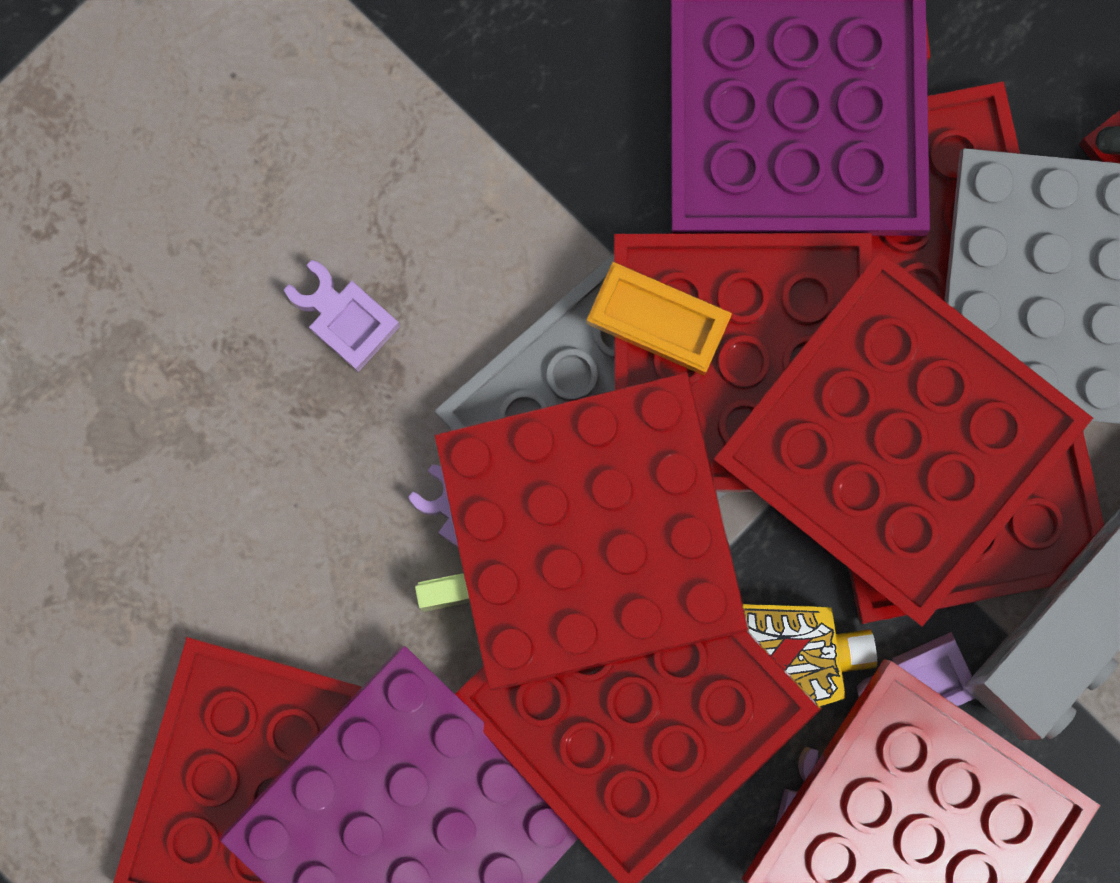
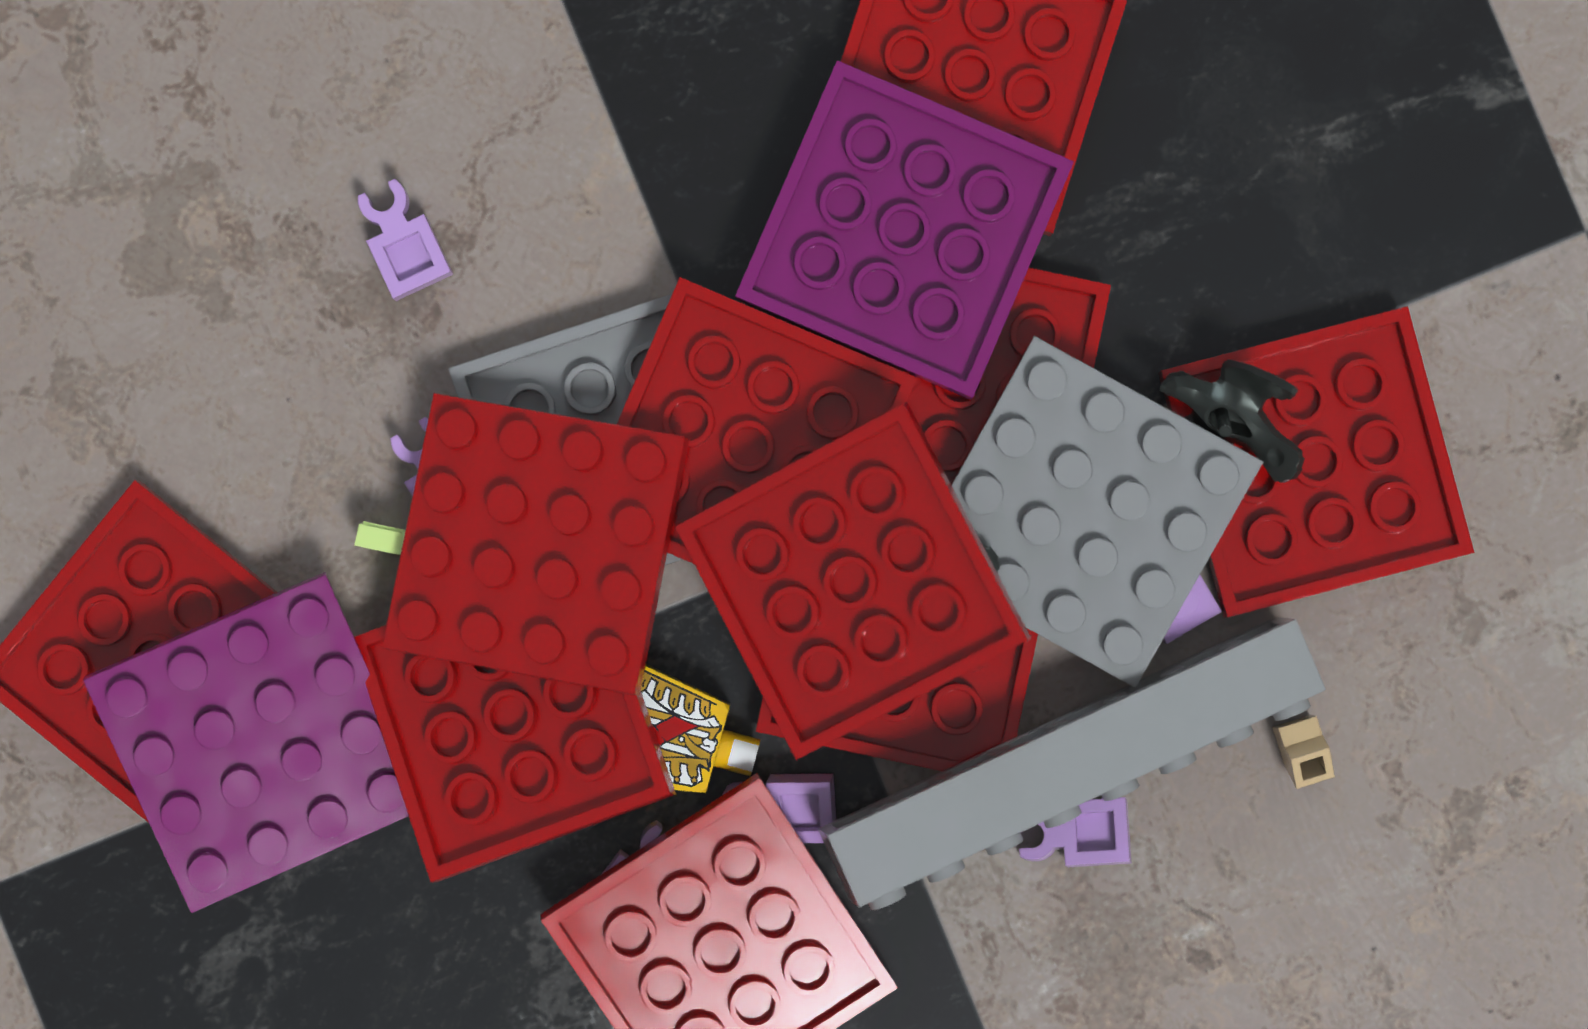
camera: 20 degrees right, 5 degrees up
(658, 318) = (684, 374): light orange tile -> none

